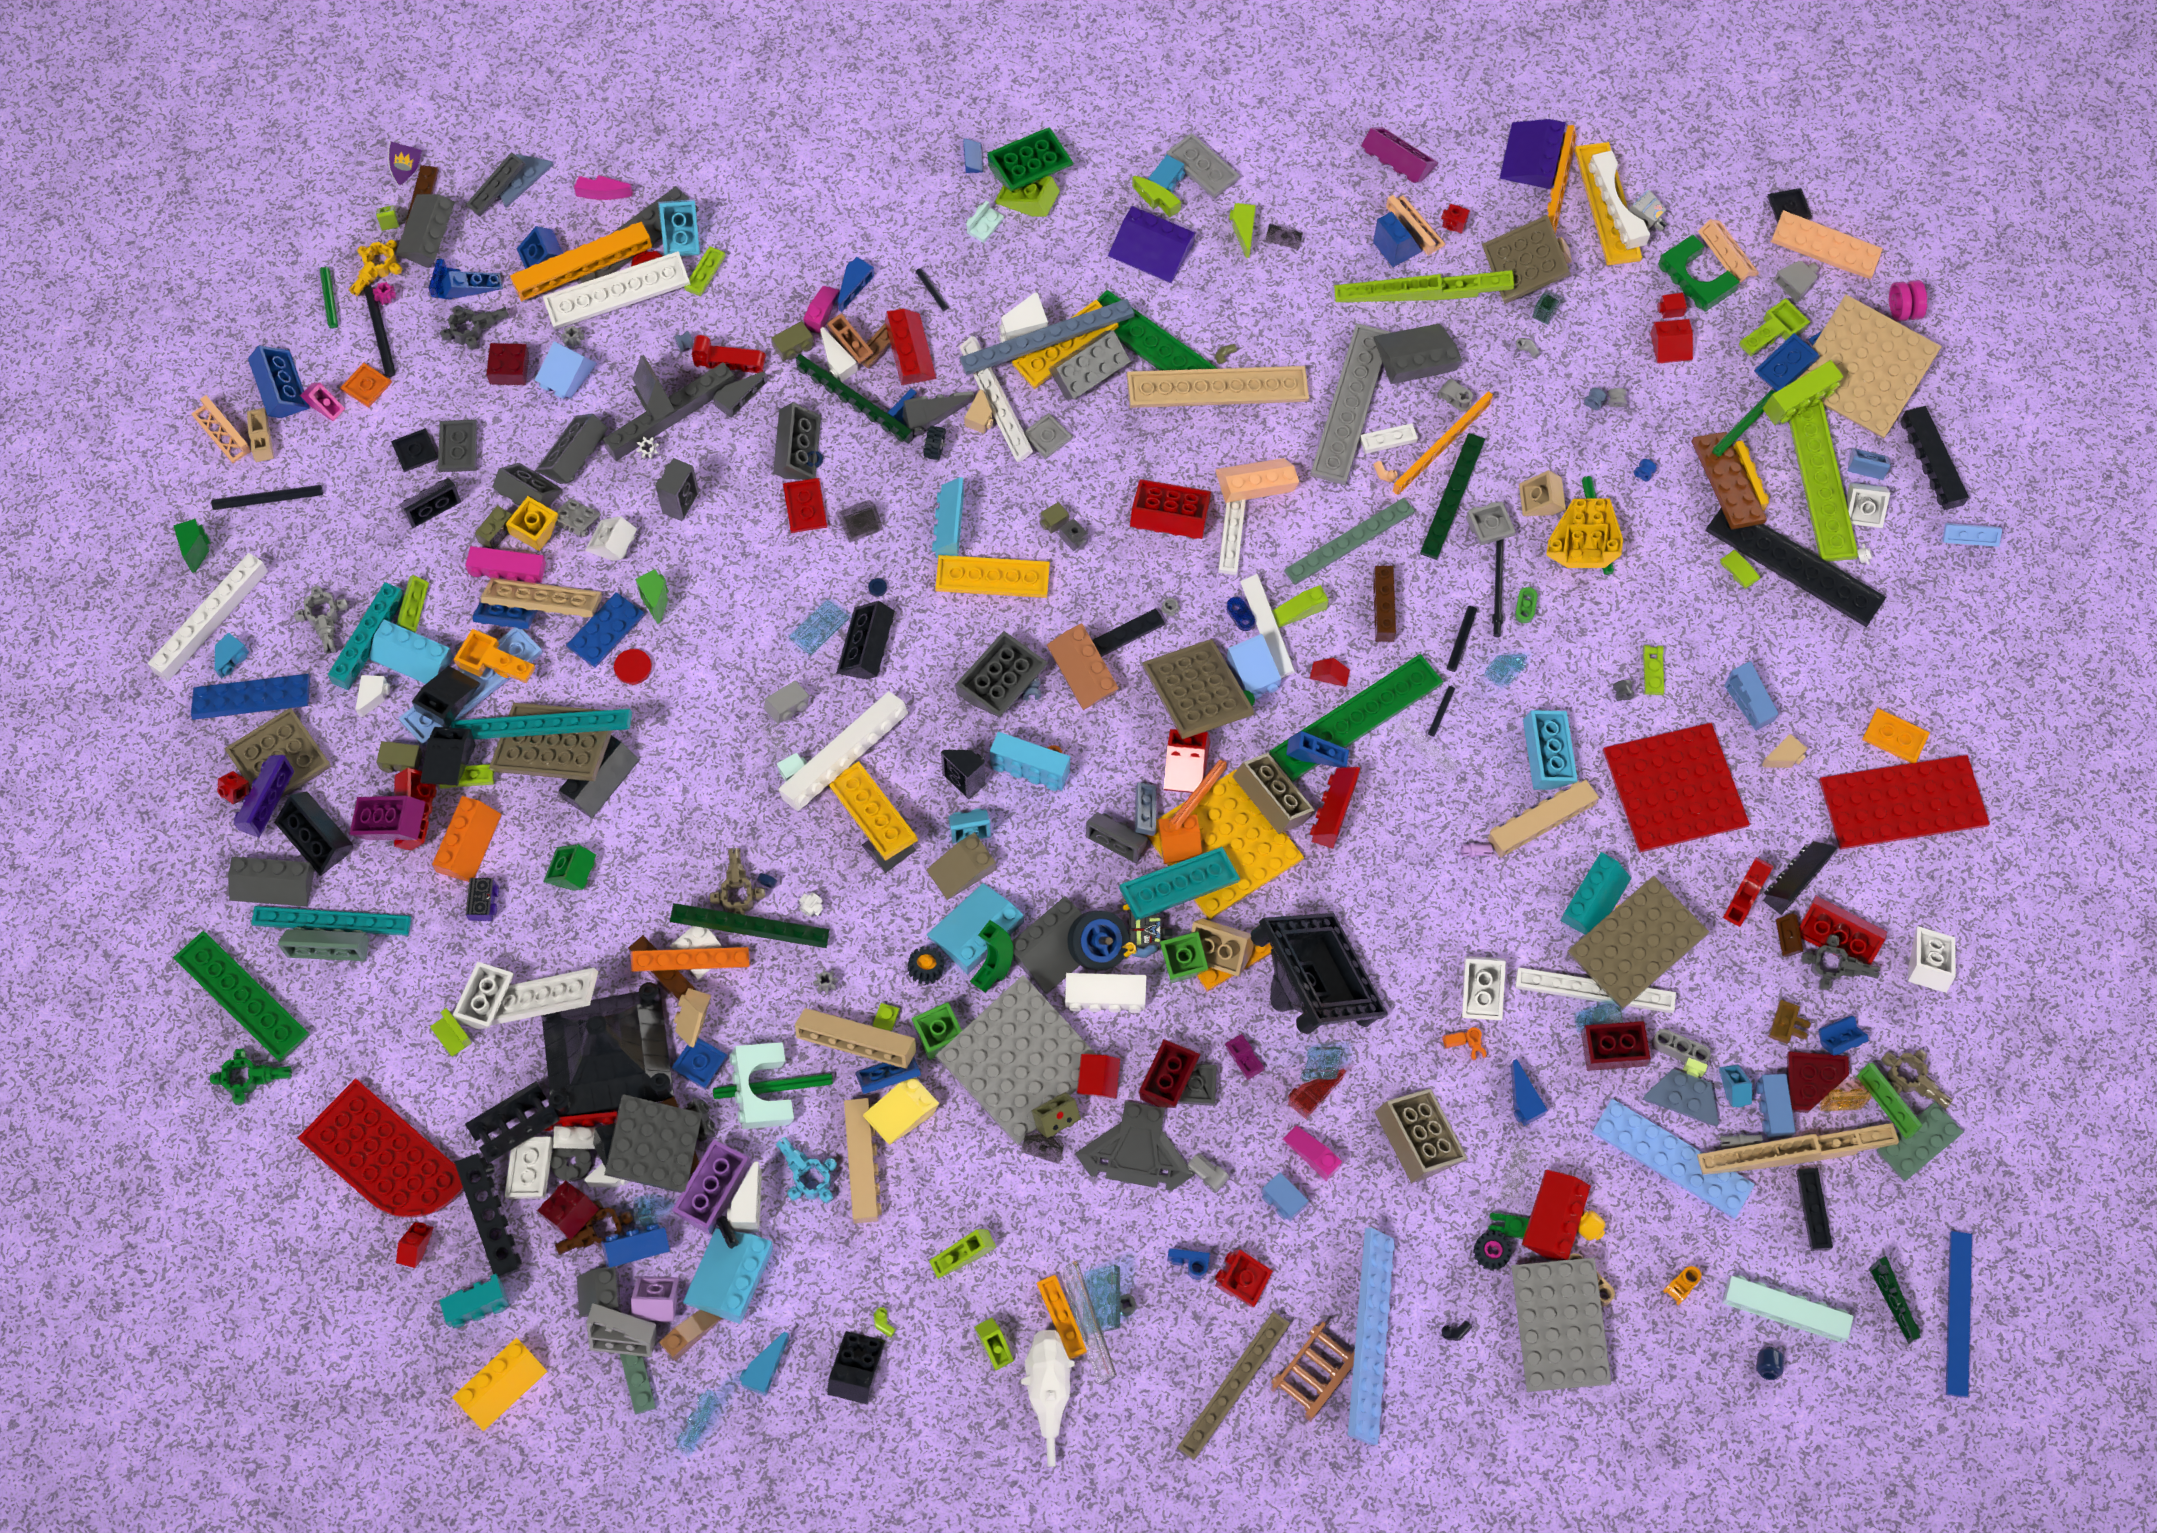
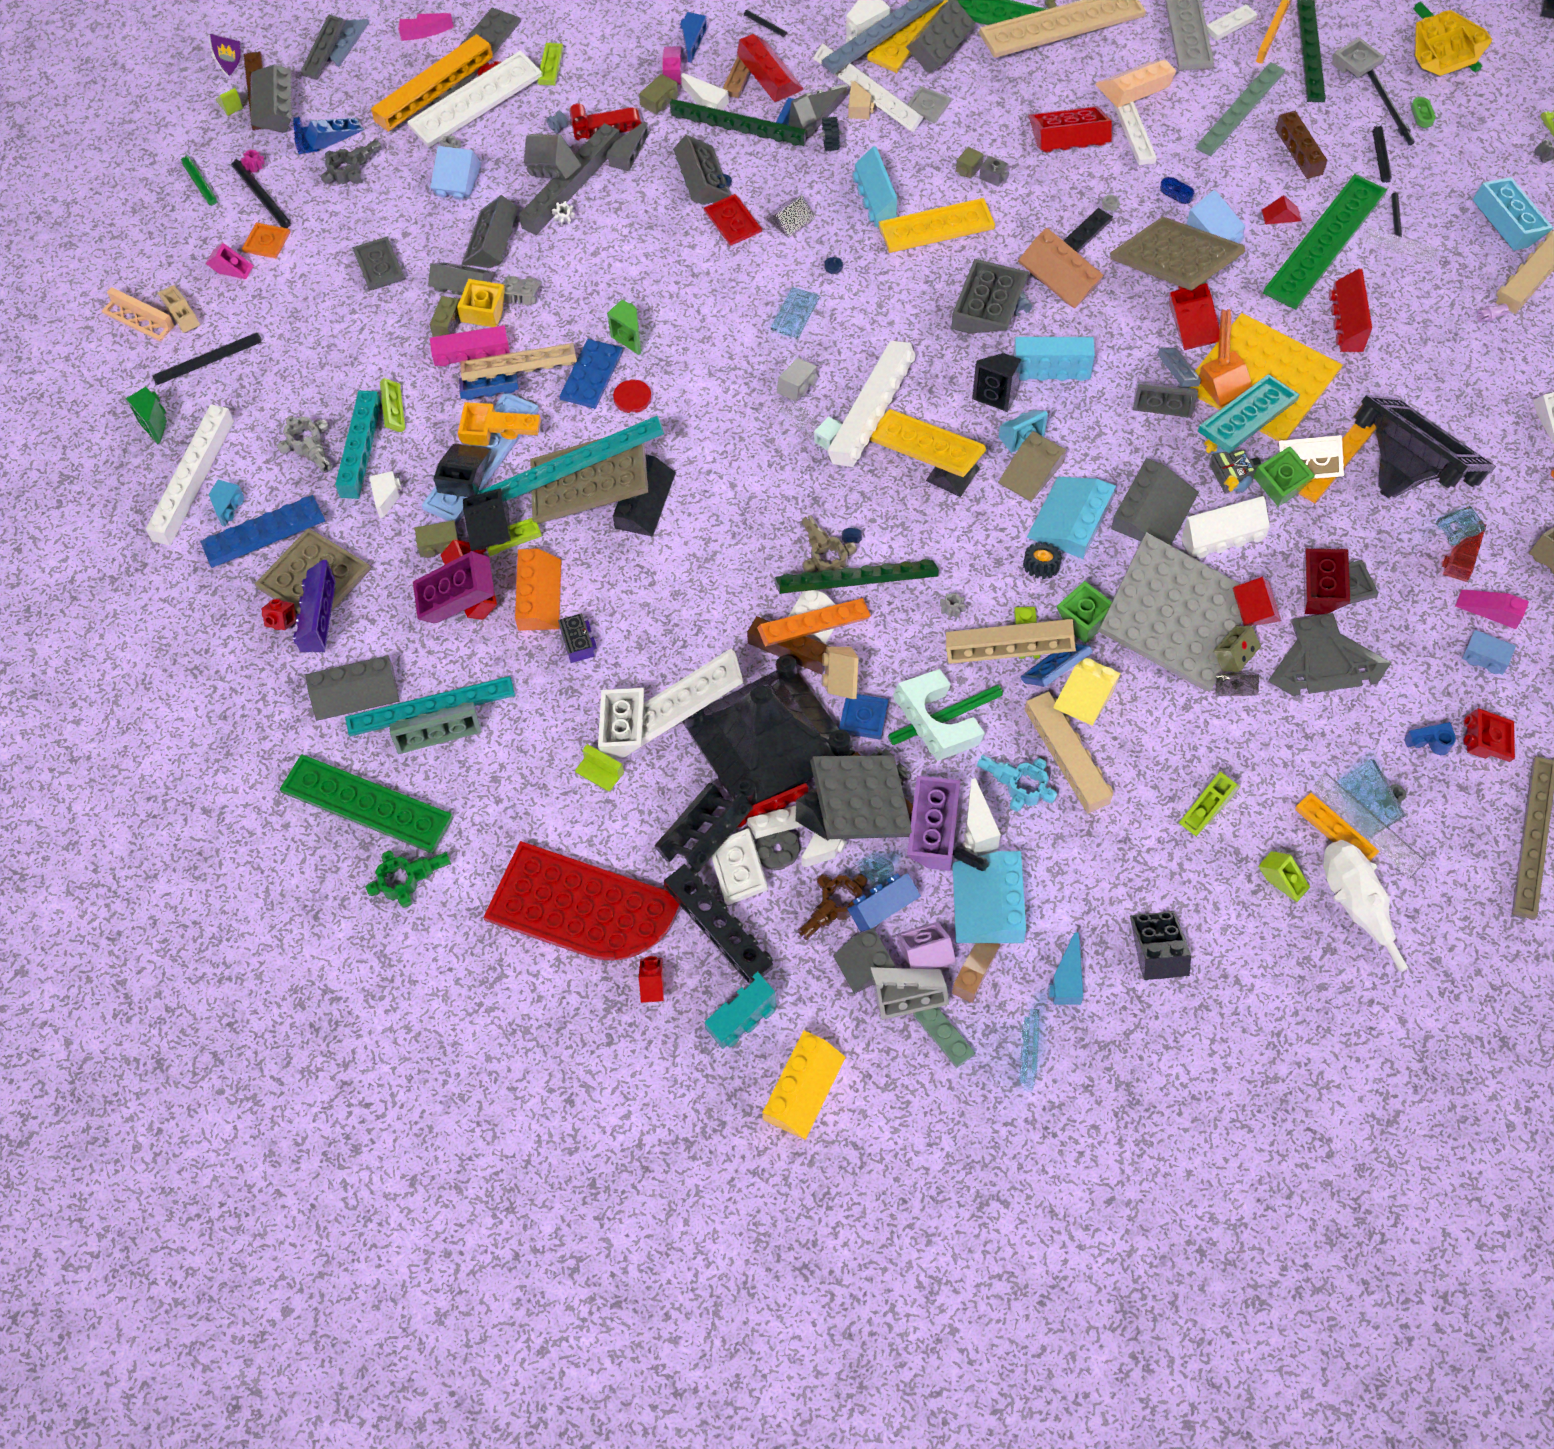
camera: 15 degrees left, 5 degrees down
(277, 381) = (177, 259): blue slope -> none
(312, 832) = (377, 631): black slope -> none
(370, 271) = (232, 146): yellow piece -> none
(409, 652) = (407, 445): medium azure slope -> none
(414, 450) = (337, 279): black tile -> none
(430, 502) = (373, 314): black slope -> none
(507, 364) = (398, 183): dark red brick -> none
(538, 246) = (383, 83): blue slope -> none
(567, 1210) = (799, 890): dark red brick -> none
(570, 867) = (652, 582): green slope -> none
(612, 538) = (563, 295): white slope -> none
(677, 489) = (610, 232): dark grey brick -> none
(679, 227) = (511, 31): medium azure slope -> none
(811, 904) = (905, 542): white gear -> none
(849, 338) = (712, 74): nougat slope -> none
(866, 640) = (845, 309): black slope -> none
(881, 1324) = (1161, 894): lime arm -> none
(998, 956) = (1110, 525): green arch -> none
(1097, 940) = (1196, 485): wheel -> none
(1212, 1176) = (1411, 657): light grey piece -> none
(1244, 1056) = (1377, 543): magenta slope -> none
(1267, 624) = (1185, 173): white tile -> none
(1273, 793) = (1290, 318): dark tan brick -> none
(1301, 606) = (1228, 168): lime slope -> none
(1316, 750) = (1307, 271): blue slope -> none
(1389, 476) = (1242, 51): light nougat arm -> none
(1504, 667) = (1434, 164): clear light blue slope -> none
(1542, 495) = (1388, 26): tan slope -> none

